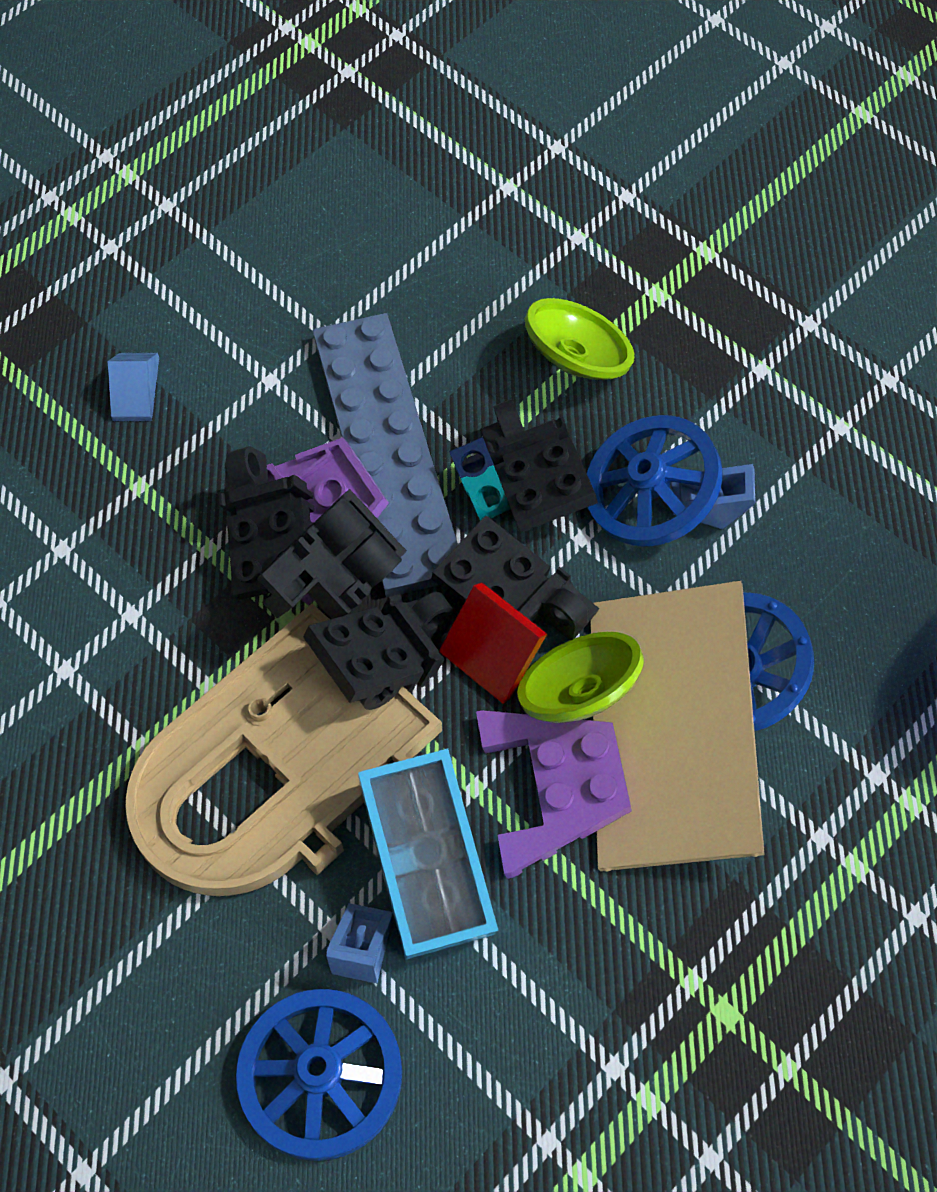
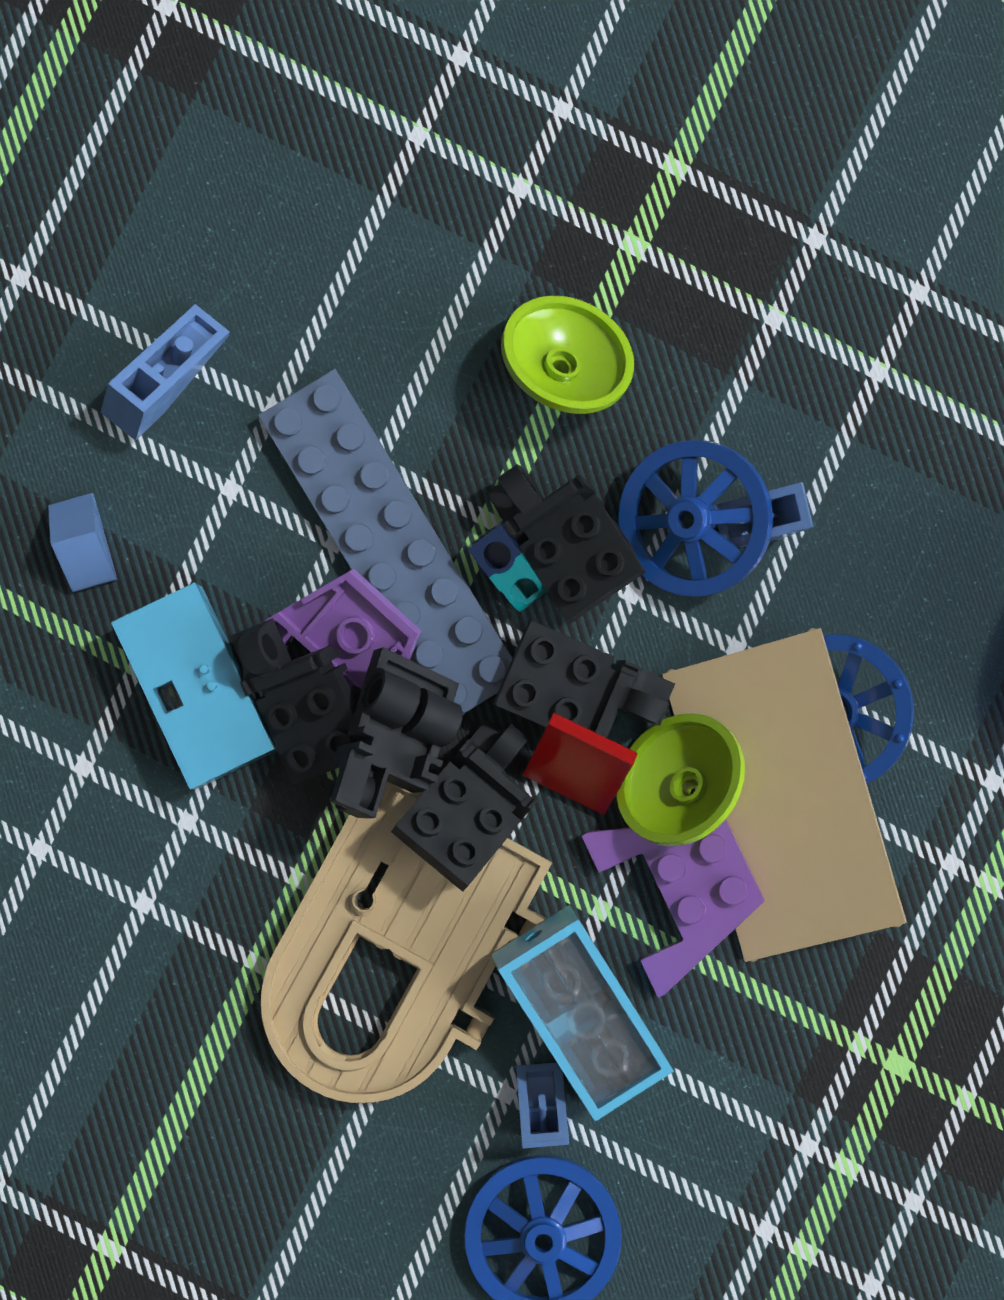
camera: 20 degrees left, 25 degrees up
(179, 504) = (194, 685): none -> medium azure brick
(242, 282) = (162, 372): none -> medium blue slope

